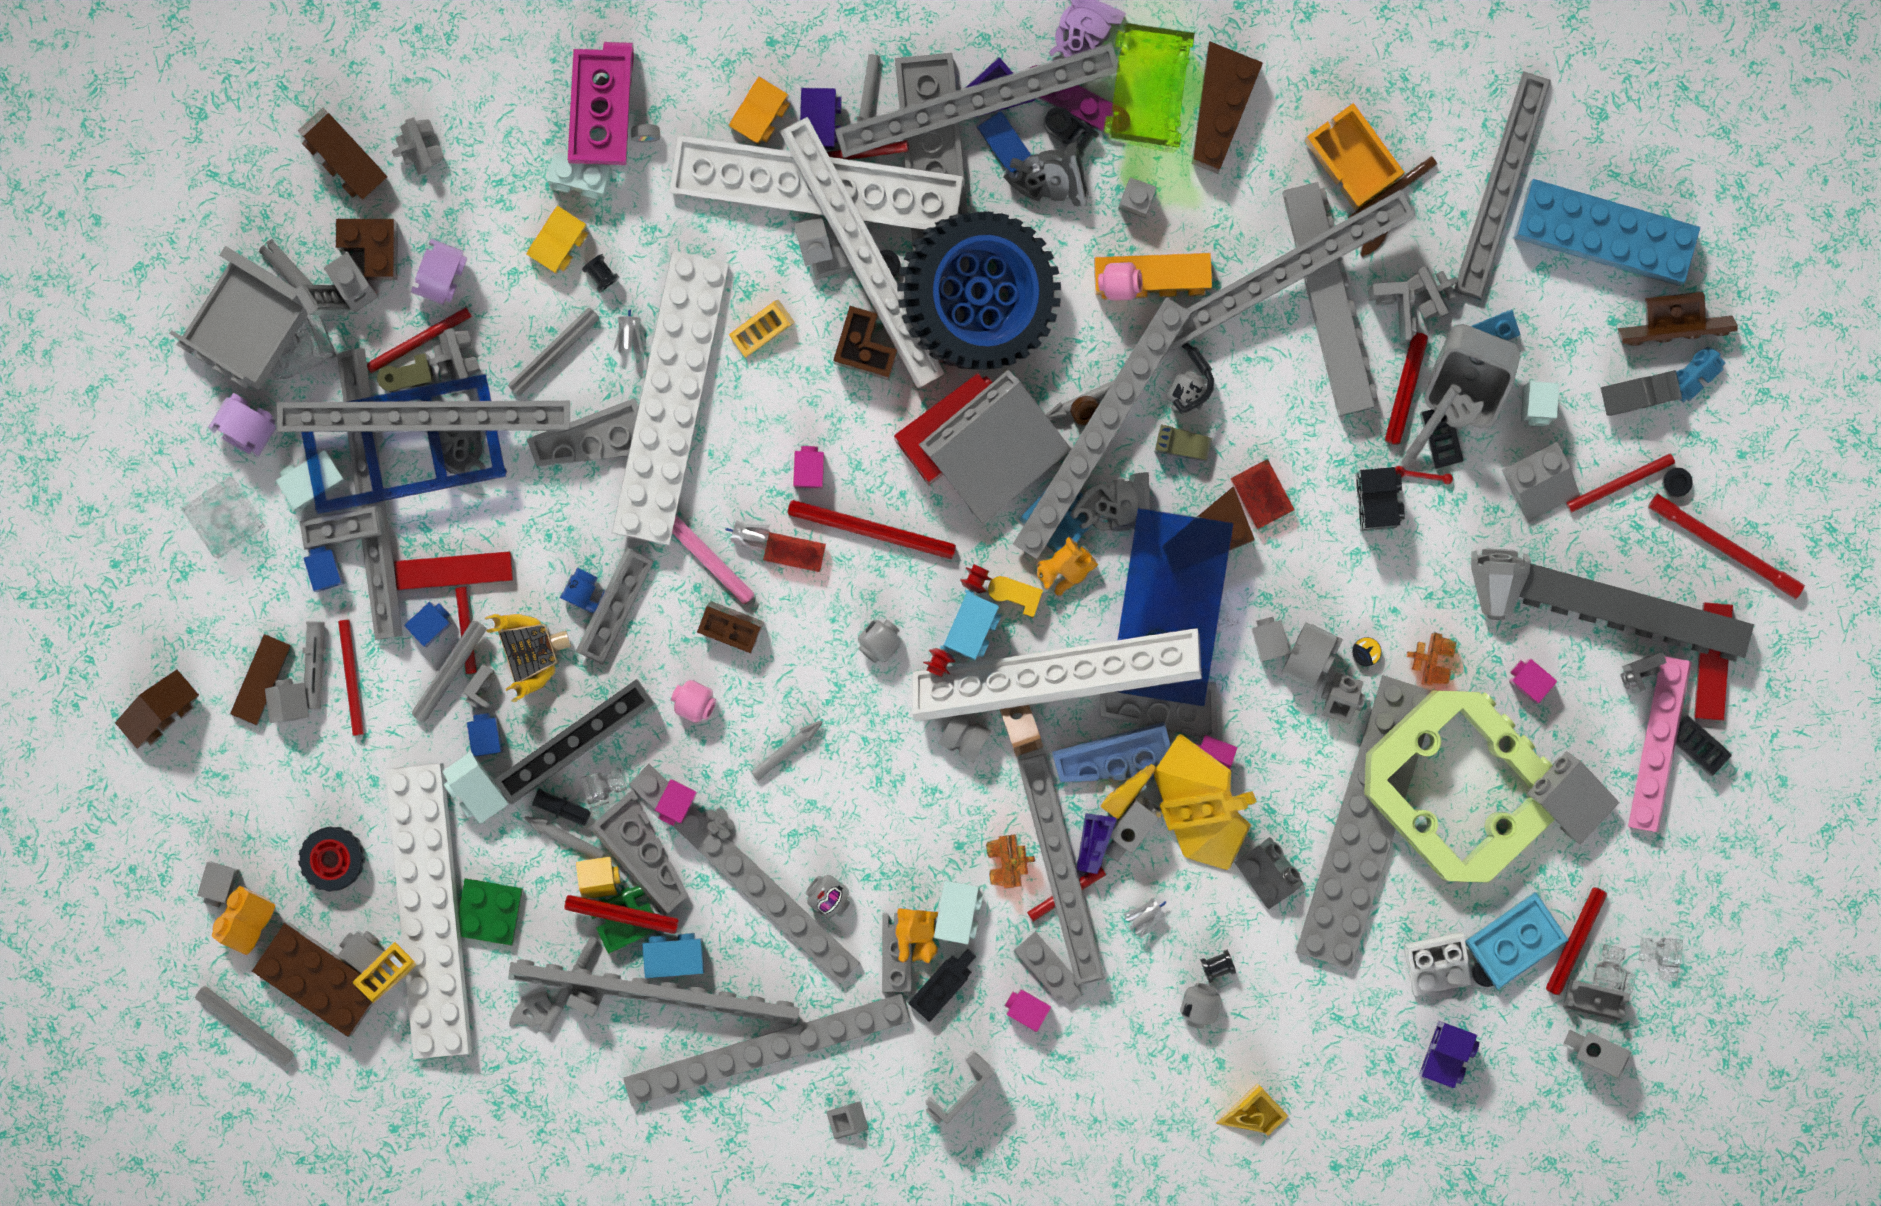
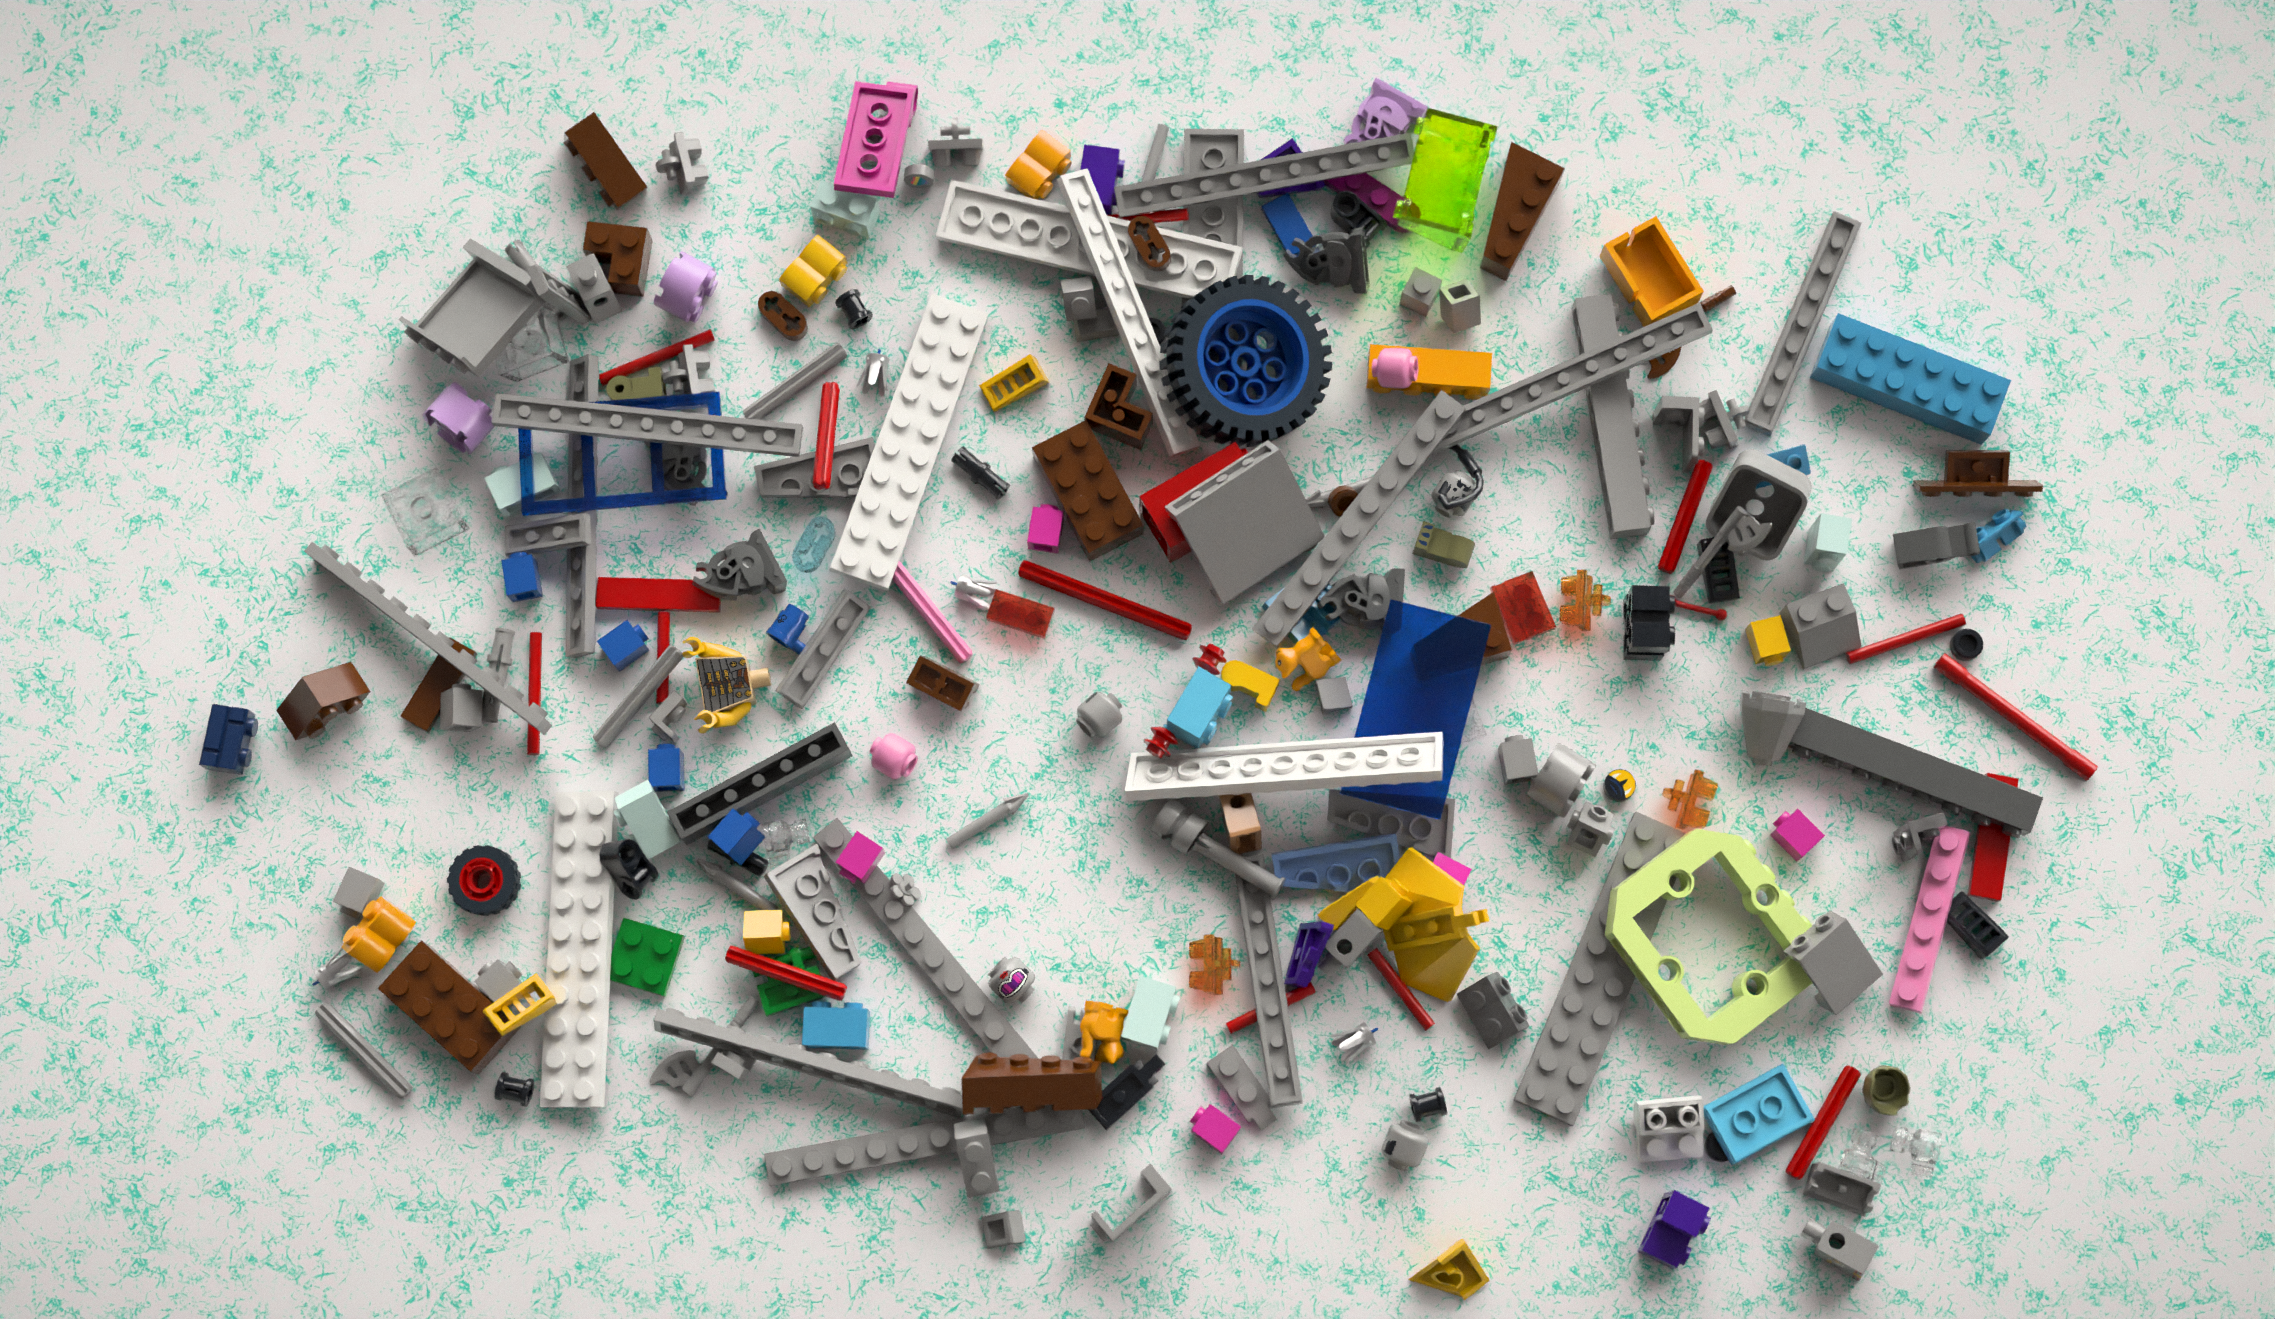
camera: 10 degrees right, 10 degrees down
(74, 754) = (228, 739): none -> dark blue brick
(208, 956) = (327, 974): none -> flat silver piece
(236, 631) = (438, 643): none -> light grey plate
(388, 1046) = (514, 1089): none -> black bush
(463, 832) = (631, 870): none -> black piece
(533, 541) = (746, 570): none -> dark grey piece
(537, 280) = (778, 320): none -> reddish brown beam
(561, 794) = (737, 835): none -> blue brick
(591, 404) = (826, 436): none -> axle
(599, 508) = (819, 548): none -> clear light blue beam
(664, 102) = (941, 148): none -> light grey hips
(740, 419) = (980, 472): none -> black pin
(816, 1061) = (976, 1157): none -> light grey brick
(843, 427) = (1088, 490): none -> reddish brown brick
(857, 990) = (1031, 1083): none -> reddish brown wedge
(880, 178) = (1144, 247): none -> reddish brown beam
(1024, 768) = (1240, 866): none -> light grey pin
(1094, 595) = (1333, 694): none -> light grey slope
(1160, 790) = (1385, 902): none -> yellow brick
(1175, 208) = (1460, 305): none -> light grey brick
(1179, 858) = (1401, 989): none -> red bar
(1319, 476) = (1581, 587): none -> clear orange hips
(1492, 501) = (1768, 640): none -> yellow brick
(1630, 907) = (1886, 1090): none -> olive hair

